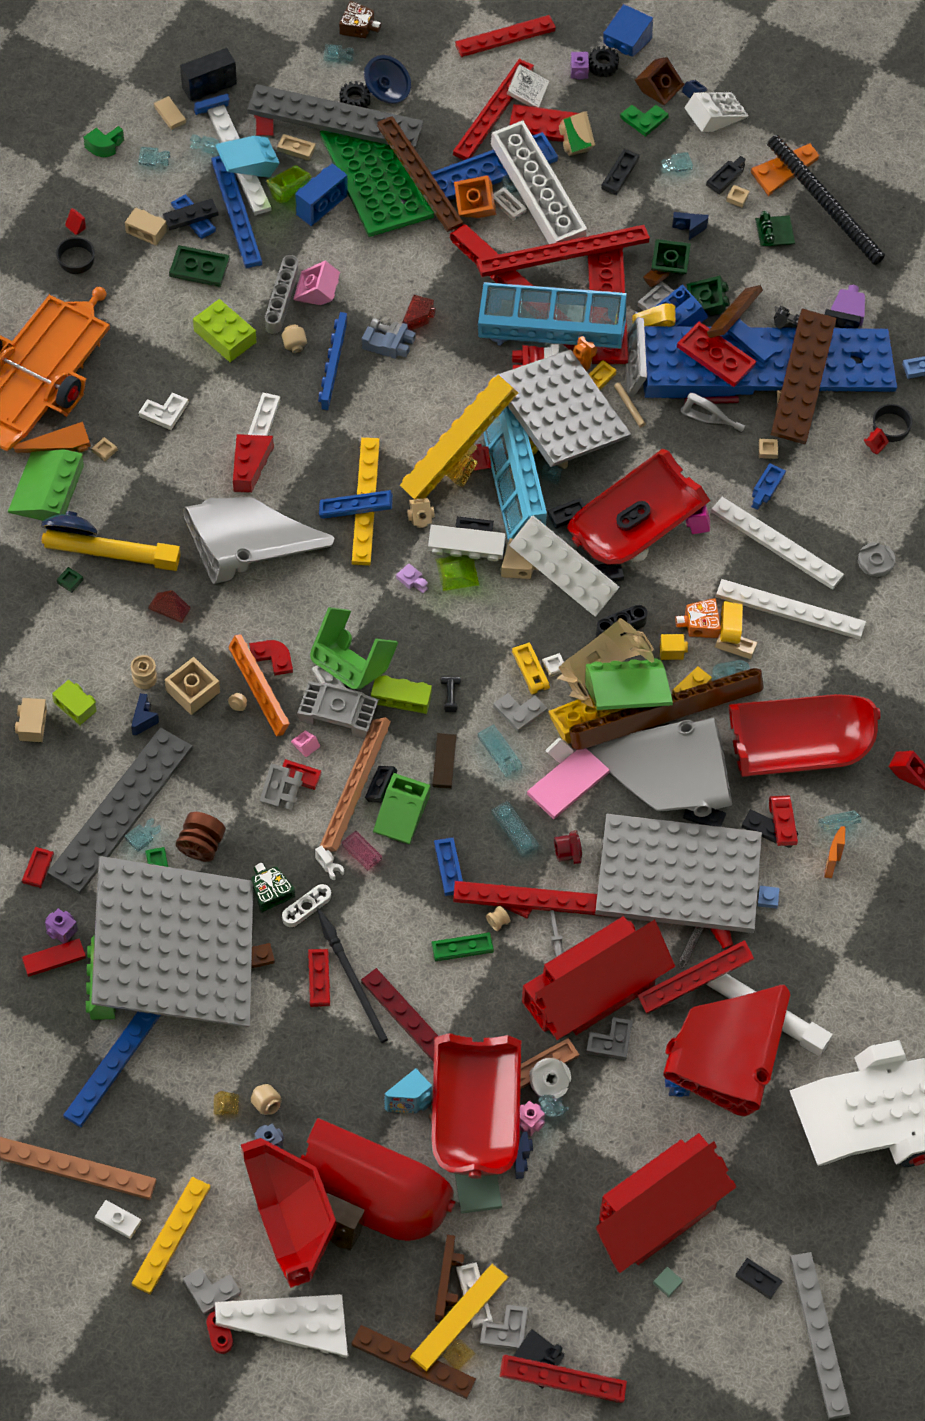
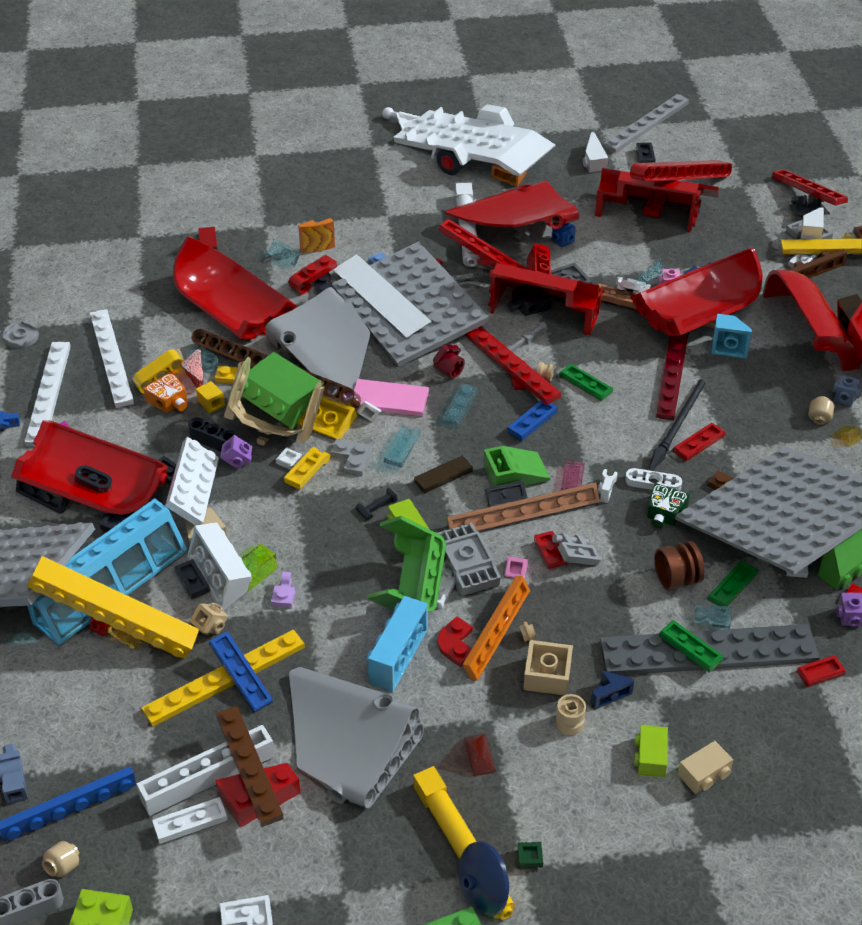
camera: 125 degrees left, 15 degrees down
(128, 789) = (691, 646): none -> green tile
(263, 453) = (249, 766): none -> reddish brown plate
(289, 441) = (197, 773): none -> white brick
(292, 605) = (397, 643): none -> medium azure brick
(498, 1318) = (812, 225): none -> white slope
(583, 624) = (236, 452): none -> medium lavender brick
(639, 1012) = (539, 259): none -> red slope
(655, 1225) = (680, 170): none -> red beam
(702, 851) = (382, 295): none -> white sticker
(711, 647) = (193, 368): none -> clear red slope
(793, 1220) = (595, 156): none -> white slope

